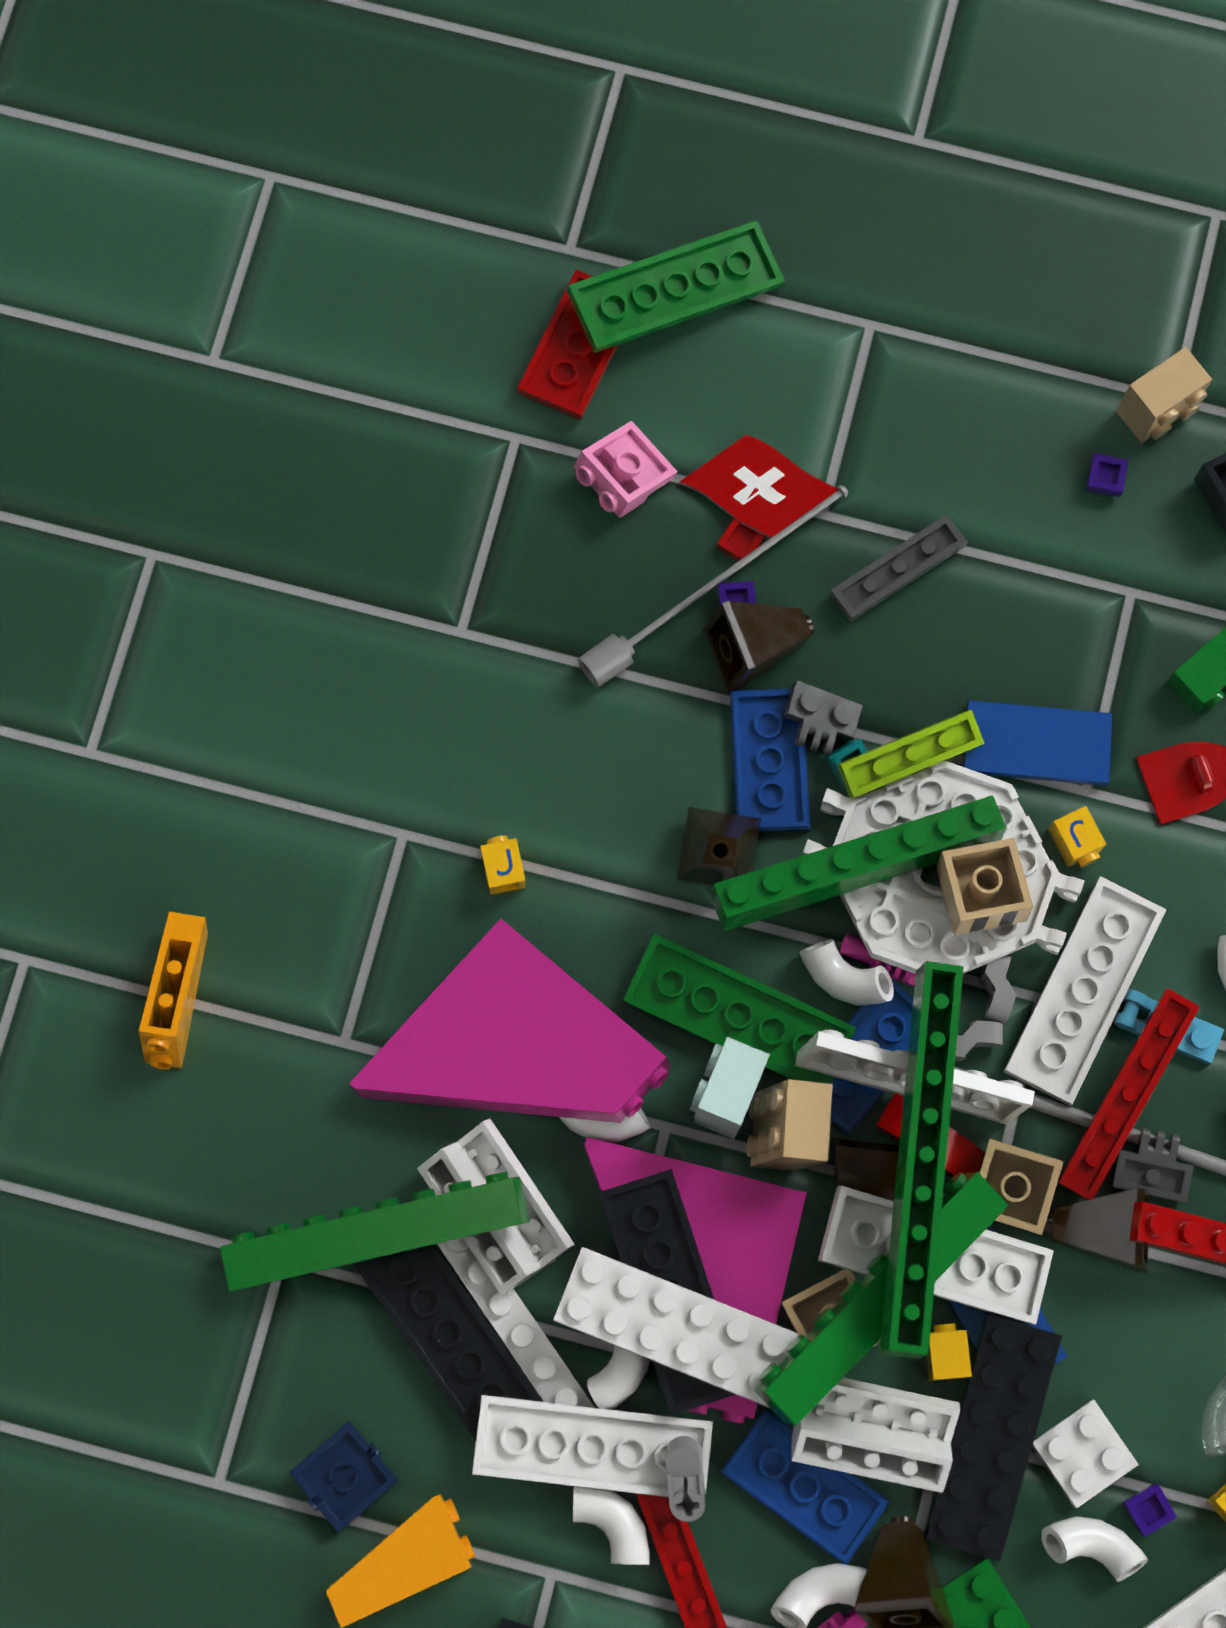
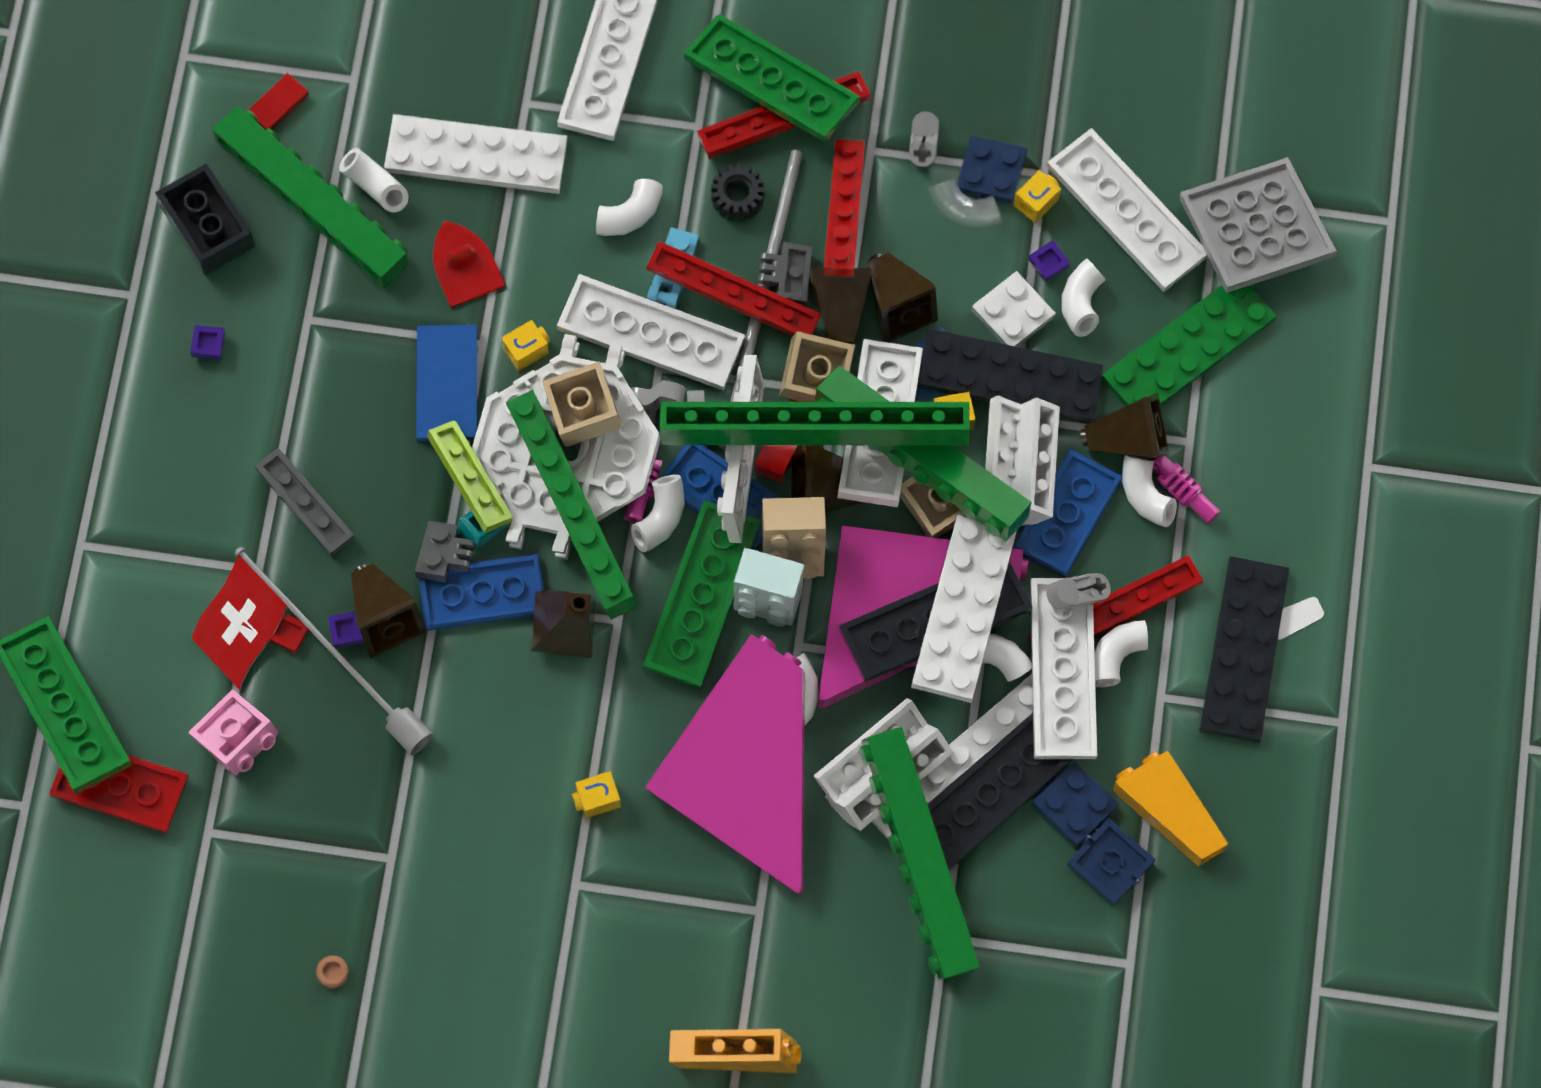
camera: 95 degrees left, 5 degrees down
(335, 556) = (332, 972): none -> nougat tile
(423, 1442) = (1075, 804): none -> dark blue plate
(1110, 1303) = (901, 297): none -> dark brown slope
(1164, 396) = (137, 297): tan brick -> none

